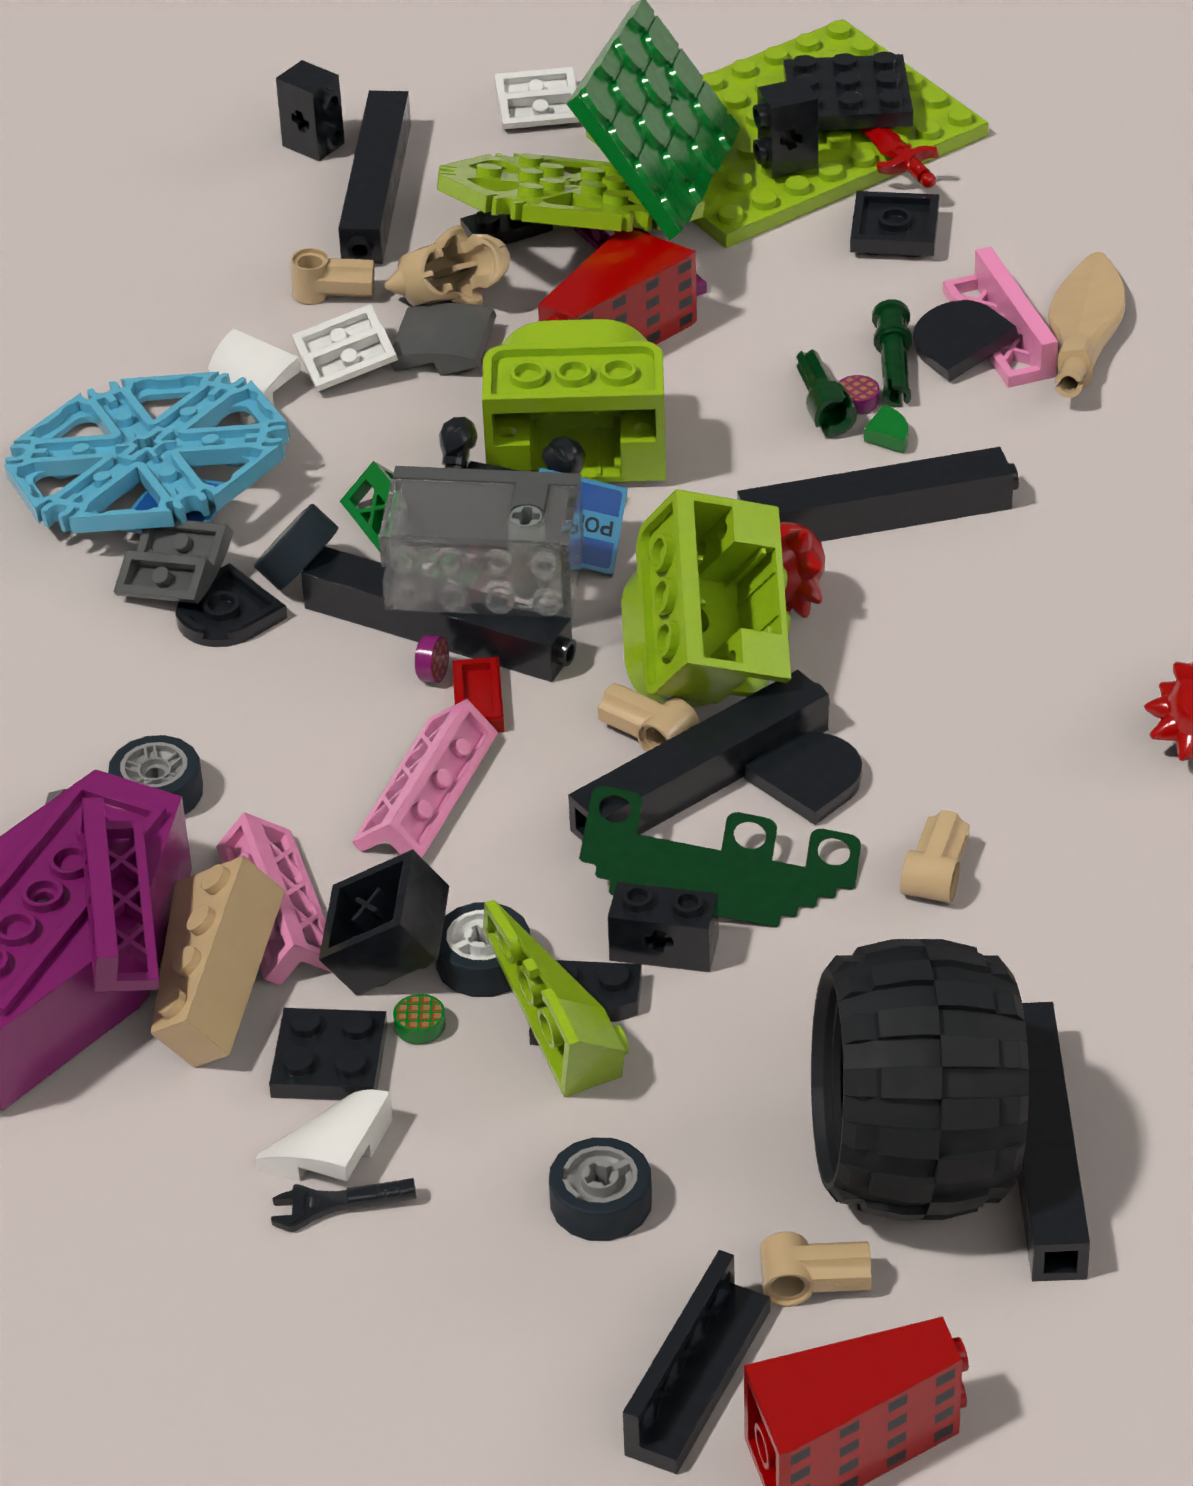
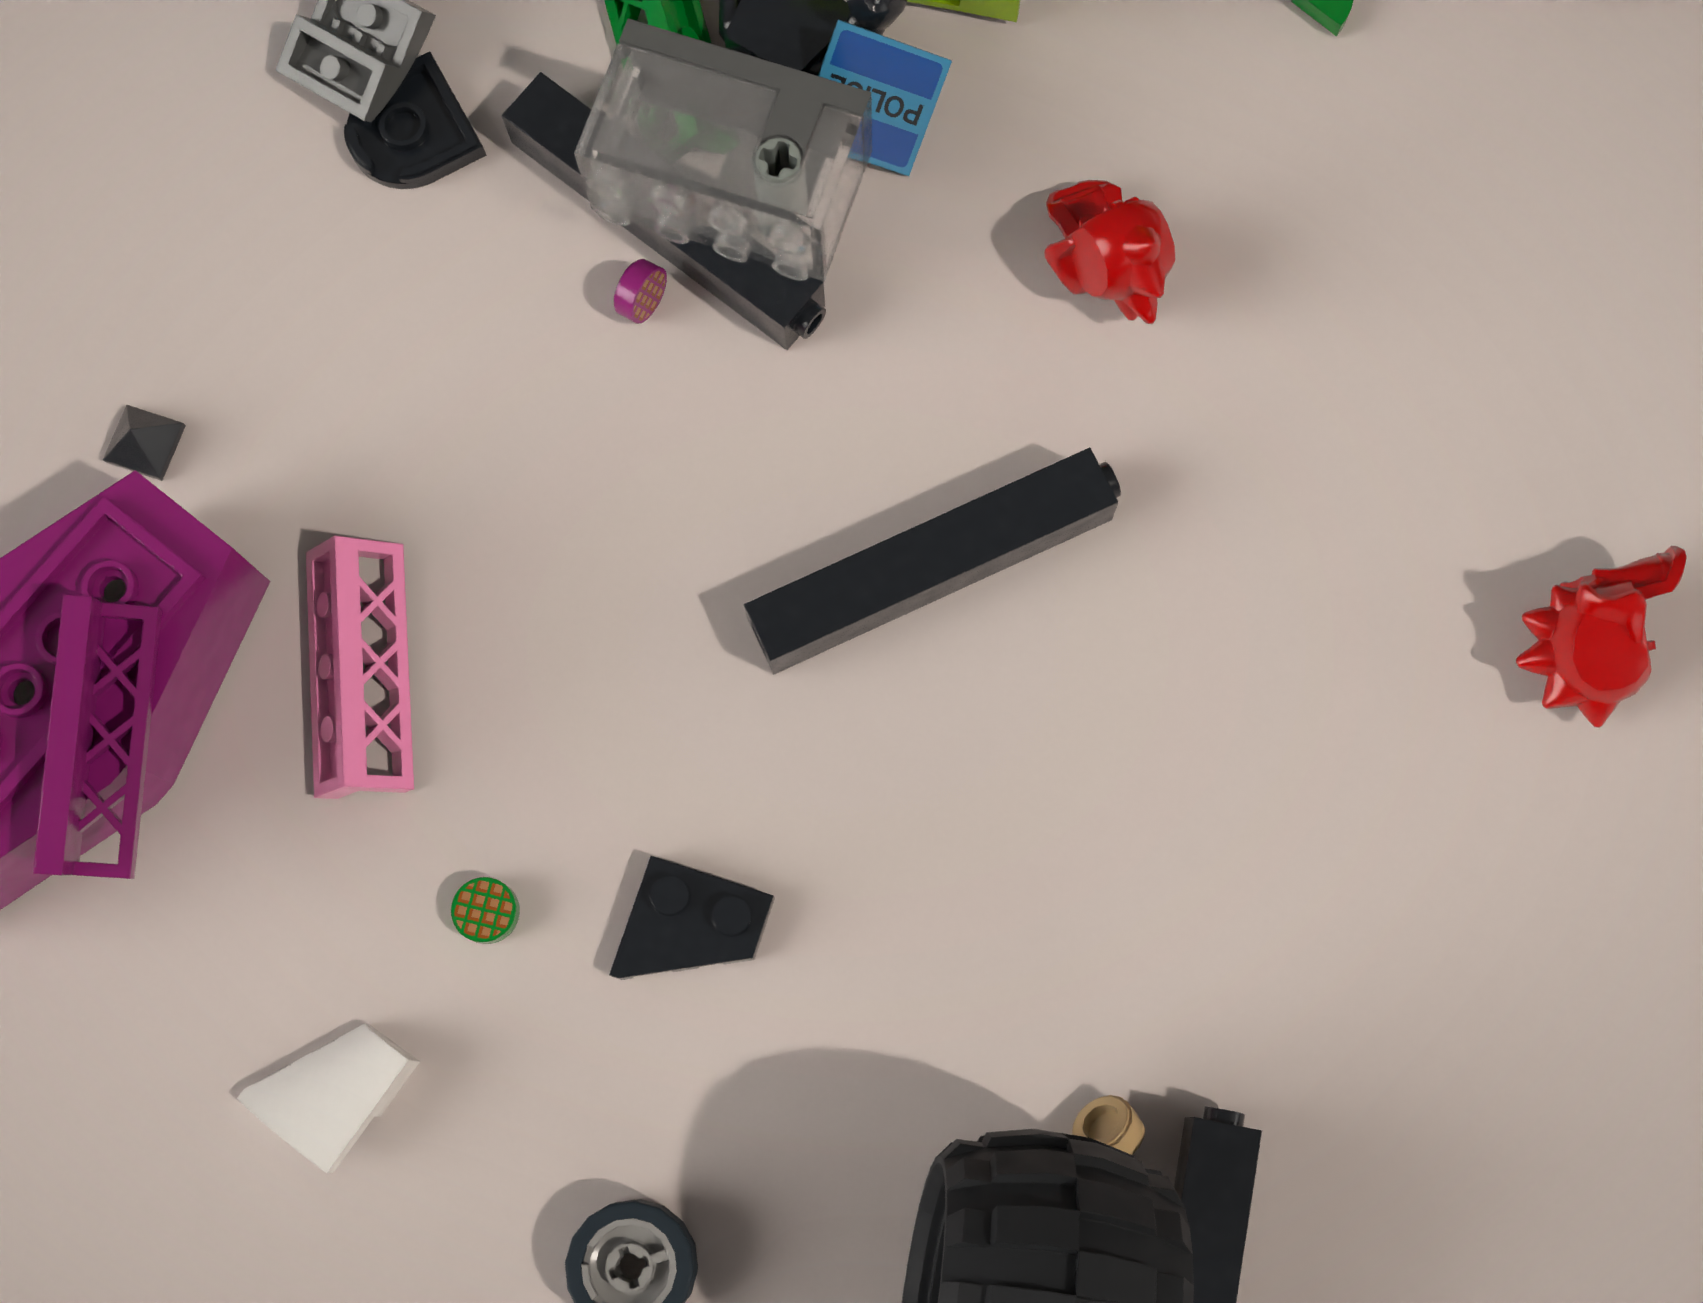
camera: 15 degrees right, 35 degrees up
(161, 764) = (233, 400): wheel -> none
(213, 957) = (239, 785): tan wedge -> none
(296, 547) = (508, 62): black wheel -> none
(313, 1204) = (292, 1185): black piece -> none
(327, 1053) = (364, 942): black plate -> none
(384, 922) = (462, 779): black brick -> none
(428, 781) = (590, 510): bright pink fence -> none
(465, 954) = (616, 831): black wheel -> none
(480, 684) = (686, 360): red tile -> none
(563, 1016) = (655, 1017): lime wedge -> none
(645, 717) = (894, 479): tan piece -> none
(663, 927) = (811, 848): black brick -> none
(706, 601) = (996, 334): lime brick -> none
(746, 879) = (887, 772): dark green piece -> none
(808, 773) = (1066, 603): black tile -> none
(894, 494) = (1278, 132): black brick -> none
(934, 866) = (1179, 819): tan piece -> none

